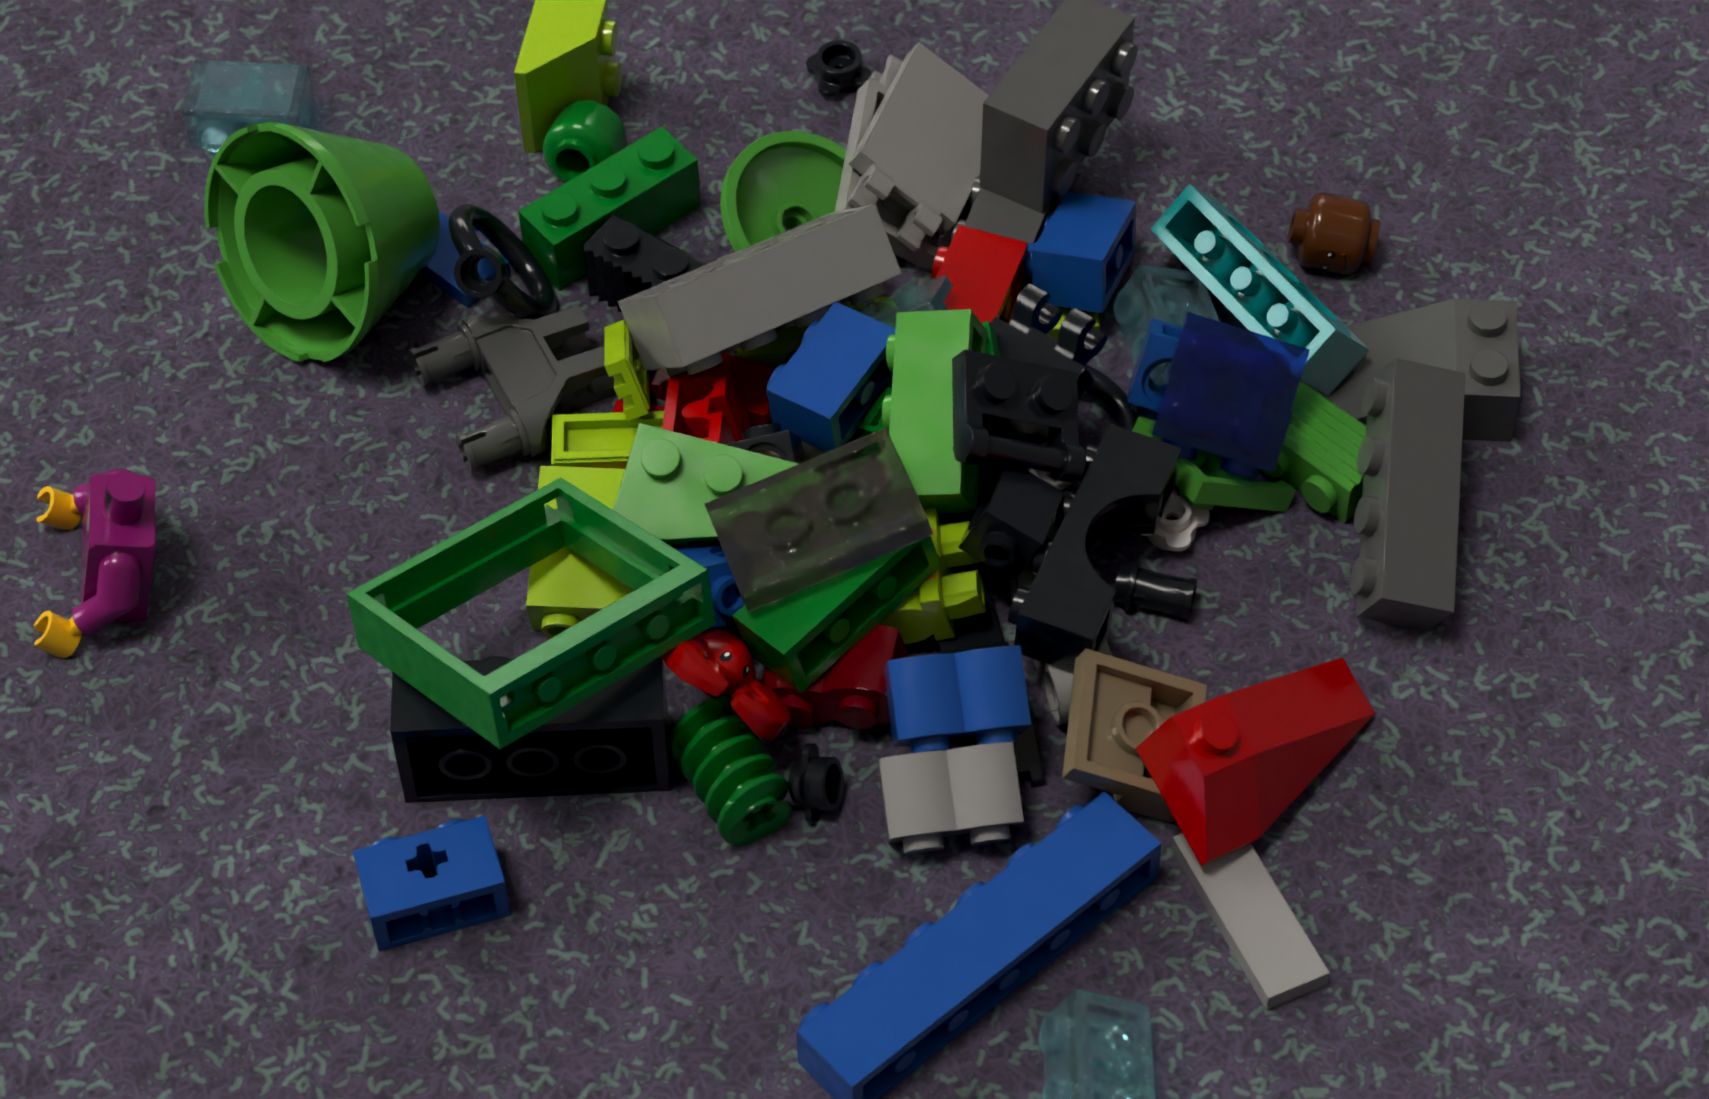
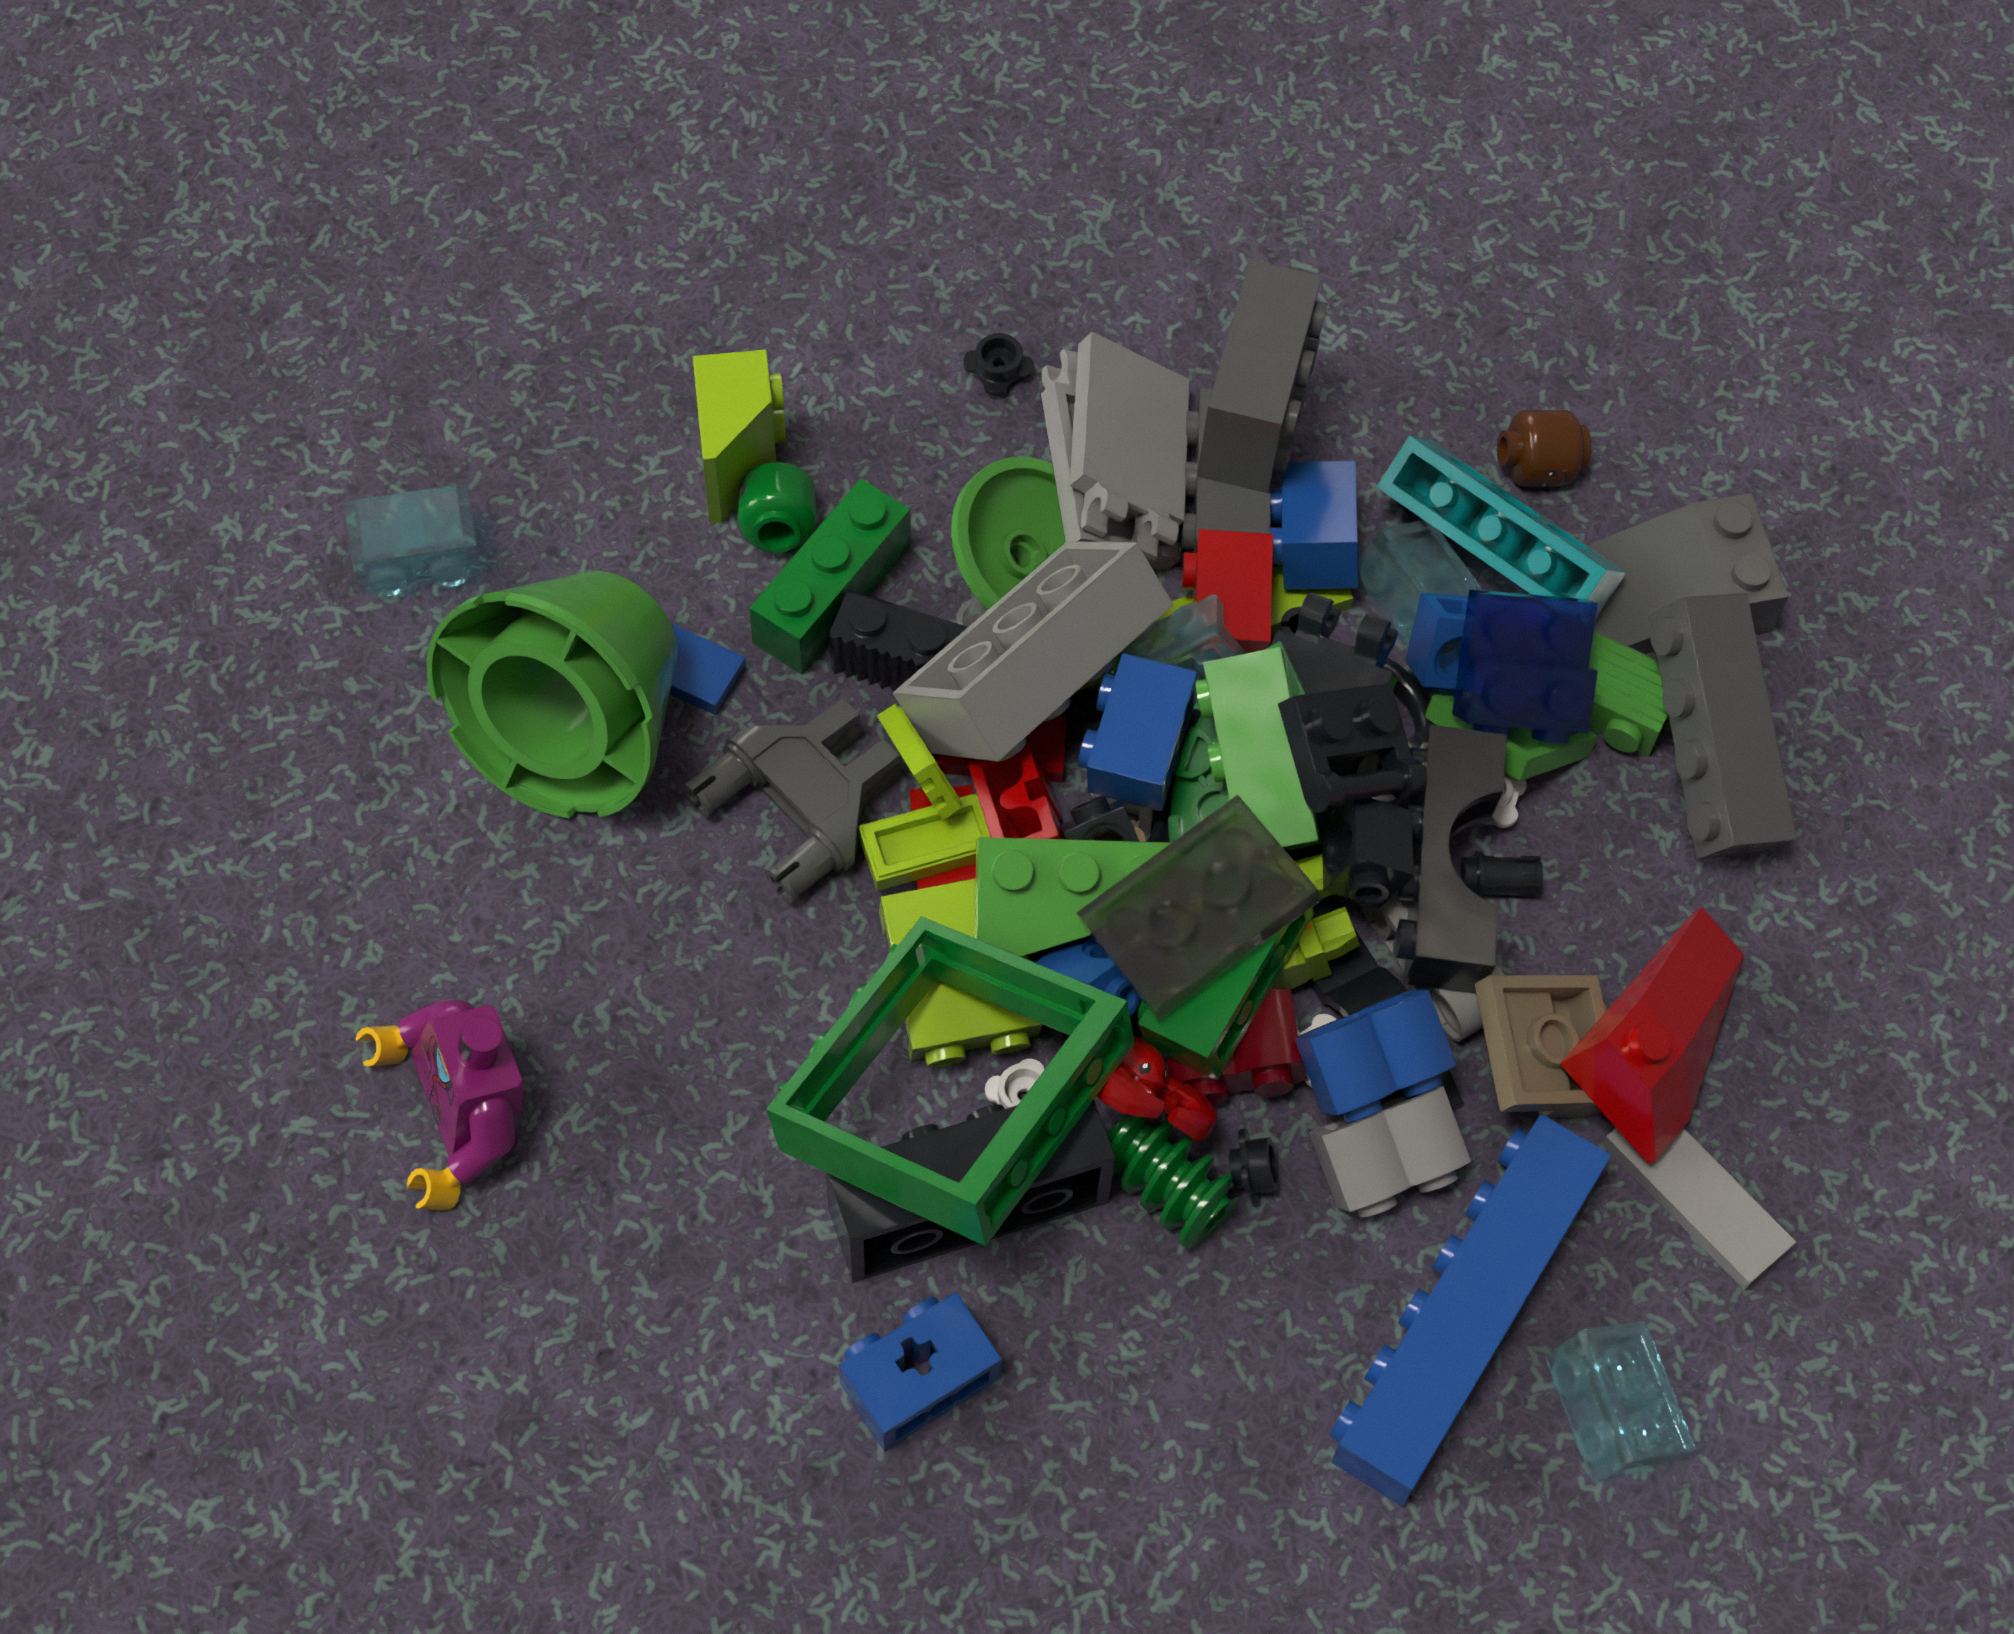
camera: 20 degrees left, 10 degrees up
(463, 224) = (792, 709): black piece -> none

